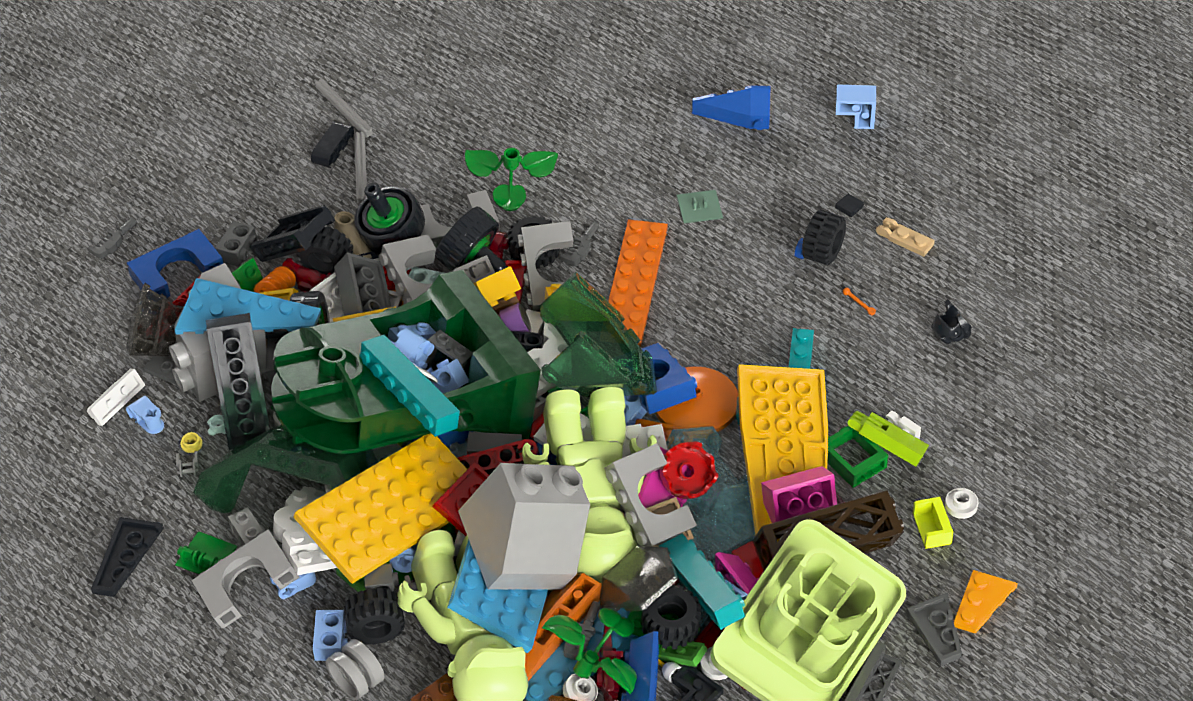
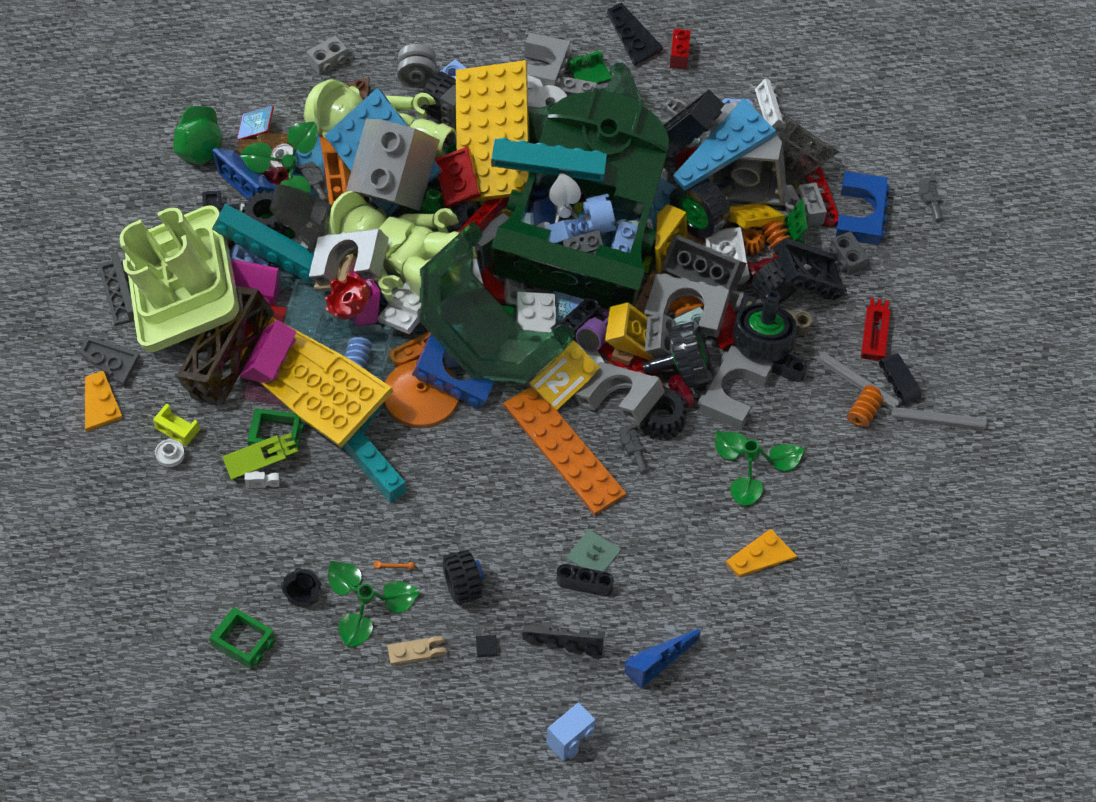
camera: 130 degrees right, 10 degrees up
(110, 500) = (680, 49): none -> red brick
(302, 184) = (875, 340): none -> red hinge
(385, 142) = (865, 406): none -> orange piece
(584, 122) = (761, 553): none -> light orange wing
(726, 451) = (358, 350): none -> light blue piece
(730, 188) = (577, 573): none -> black beam
(786, 156) = (563, 638): none -> black wing
(935, 282) = (355, 628): none -> green plant
(1030, 346) = (219, 636): none -> green window

